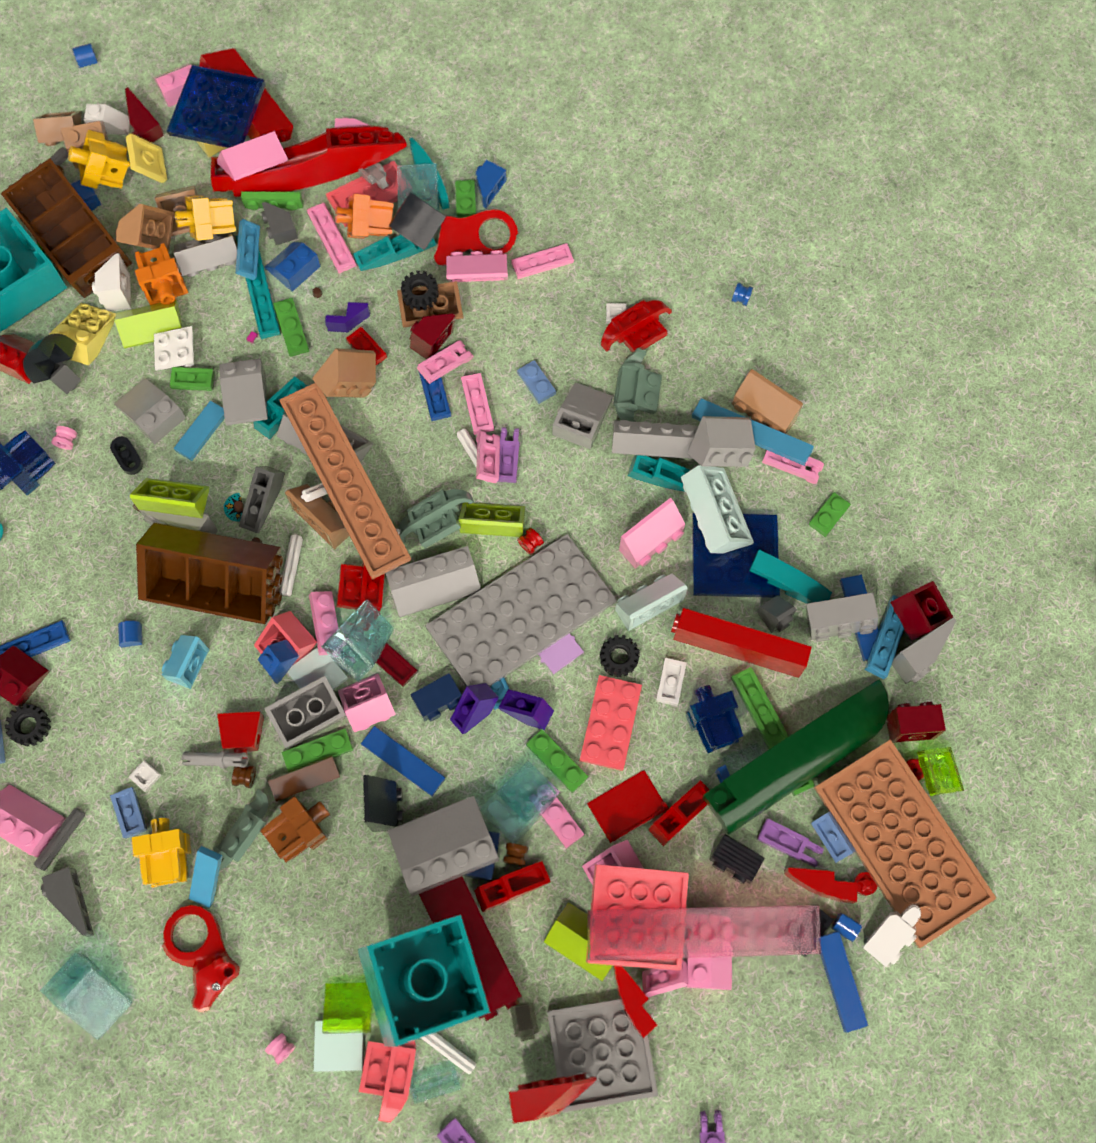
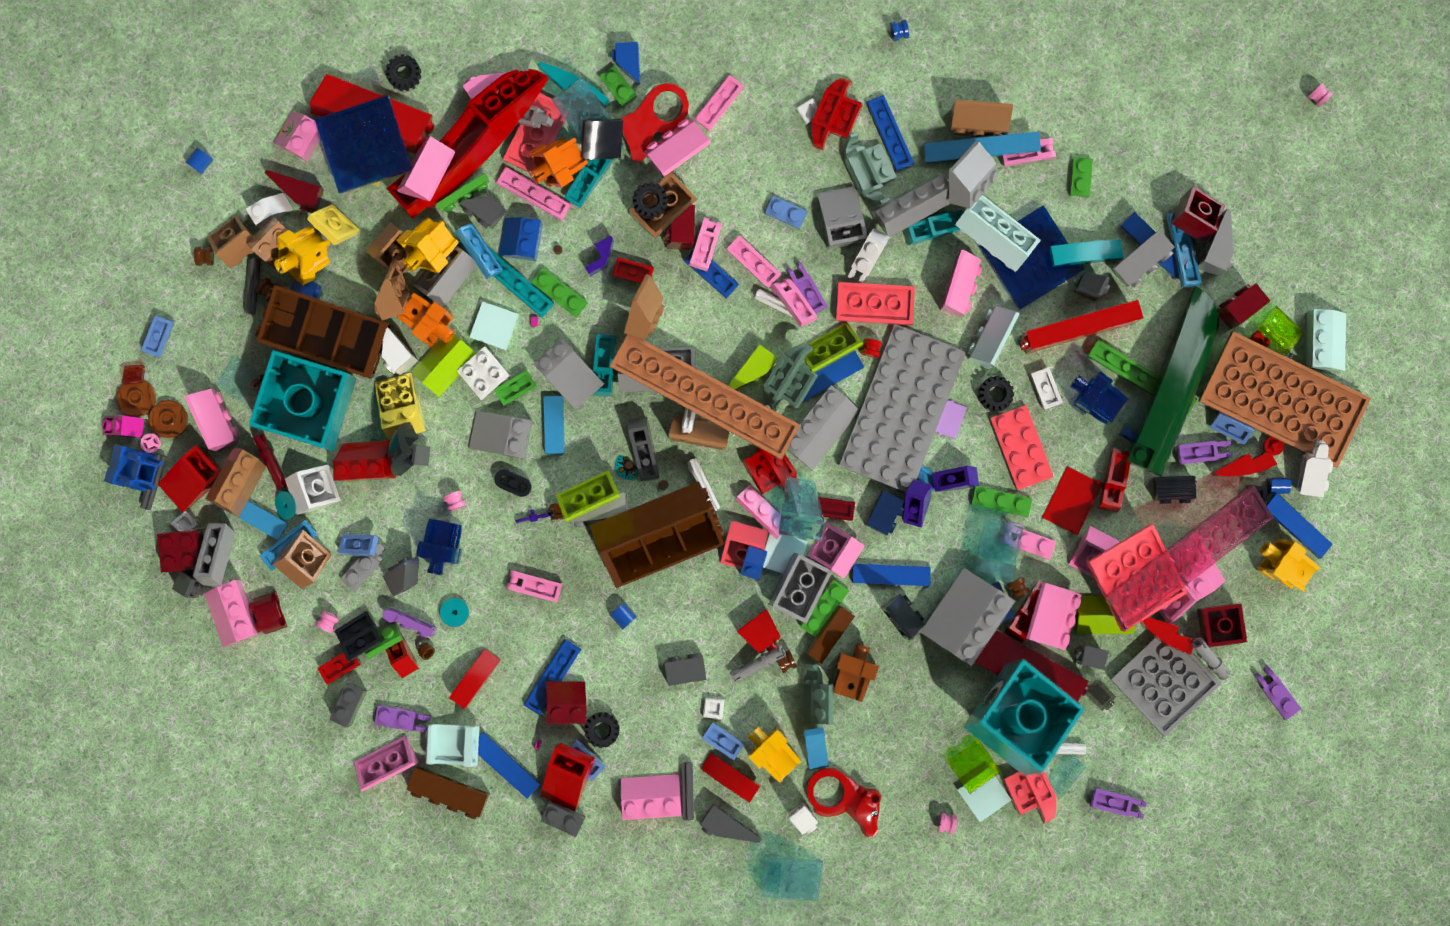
camera: 30 degrees left, 15 degrees up
(25, 123) = (204, 256): none -> reddish brown wheel
(74, 556) = (535, 586): none -> bright pink plate
(108, 854) = (730, 777): none -> red slope
(120, 496) = (533, 517): none -> dark purple piece
(142, 941) = (803, 819): none -> white slope
(144, 720) = (685, 670): none -> dark grey brick
(185, 660) = (681, 609): medium azure slope -> none
(215, 319) = (494, 326): none -> light aqua tile
(294, 77) = (398, 62): none -> black tyre
(408, 491) = (755, 368): none -> lime slope
(477, 542) = (835, 373): none -> blue tile
(529, 904) = (1054, 616): none -> bright pink slope
(539, 971) = (1090, 656): none -> dark grey brick
(546, 1097) = (1147, 738): red slope -> none
(561, 505) = (875, 303): none -> coral plate
(583, 456) = (869, 254): none -> white hinge
(664, 1067) = (1214, 663): none -> light grey pin
(676, 373) = (890, 133): none -> blue tile
(698, 1032) = (1222, 624): none -> dark red brick
(805, 1008) = (1287, 563): none -> yellow piece
(983, 812) = (1326, 340): none -> light aqua slope

